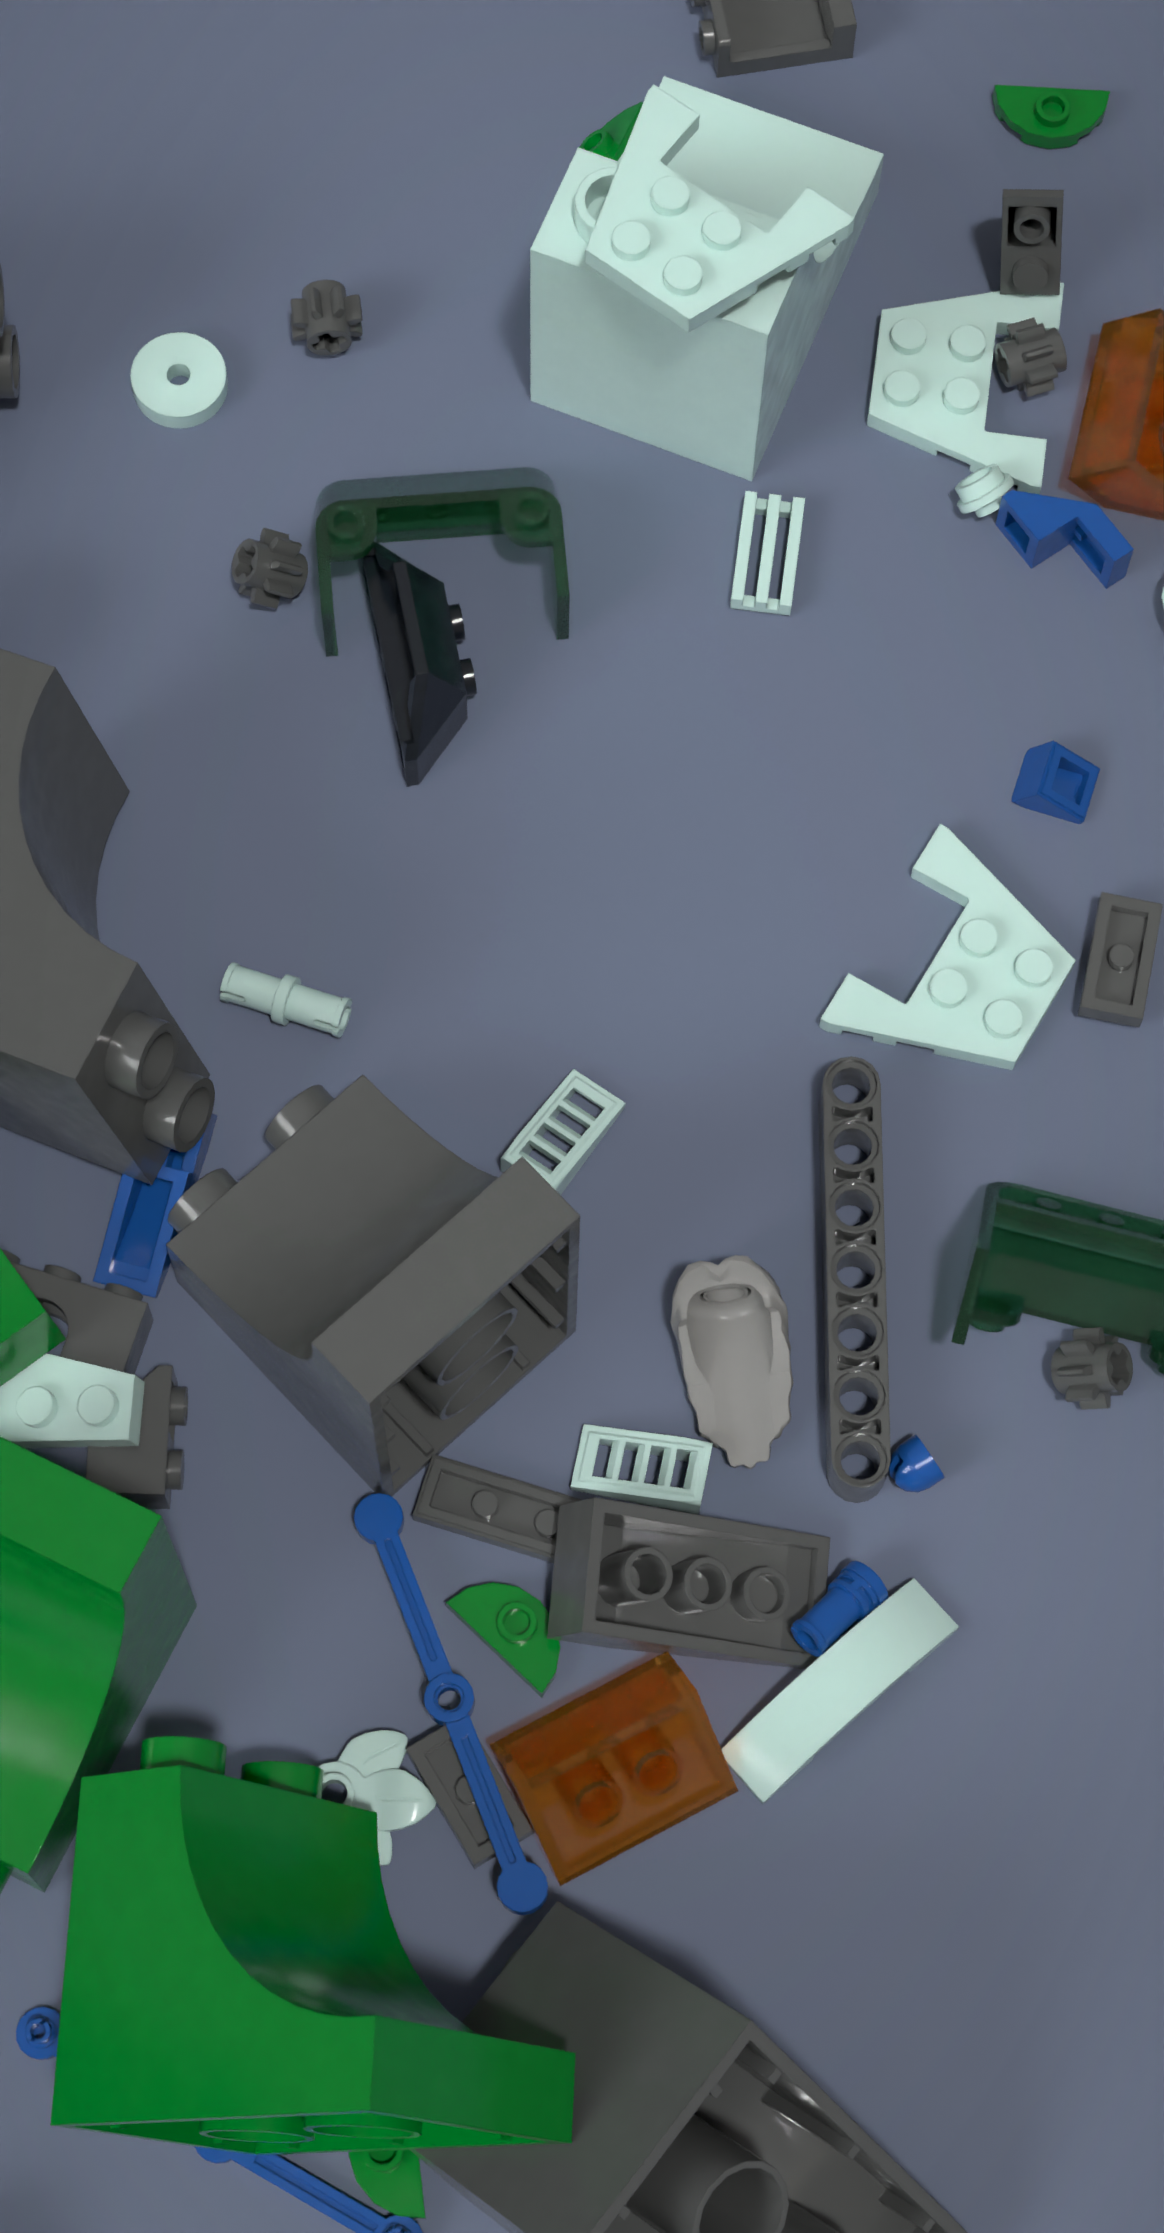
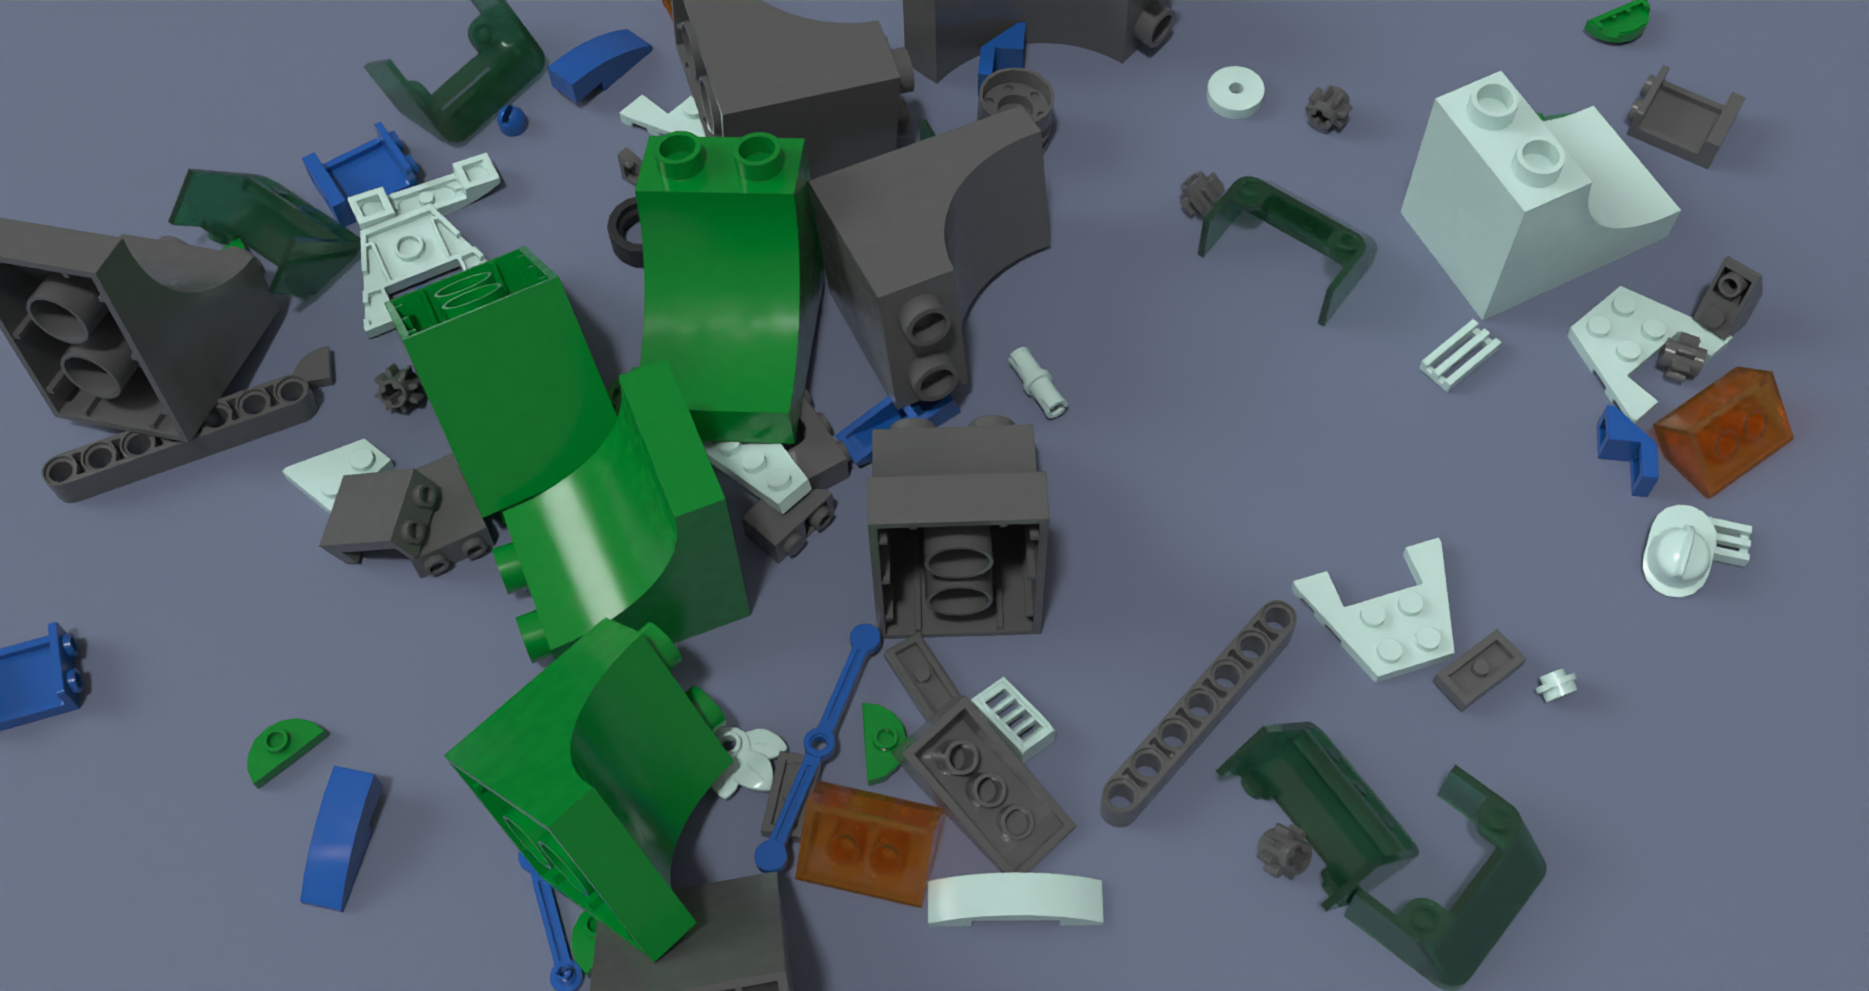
camera: 45 degrees right, 10 degrees down
(418, 658) = (1237, 282): black wedge -> none
(545, 1119) = (1093, 556): light aqua slope -> none
(683, 245) = (1513, 139): light aqua wing -> none
(734, 1355) = (1105, 697): light grey hair -> none
(848, 1600) = (1055, 860): blue pin -> none
(914, 1466) = (1150, 826): blue hinge -> none
(983, 490) = (1598, 400): light aqua plate -> none
(1049, 115) = (1796, 259): green plate -> none
(1056, 782) = (1521, 565): blue slope -> none

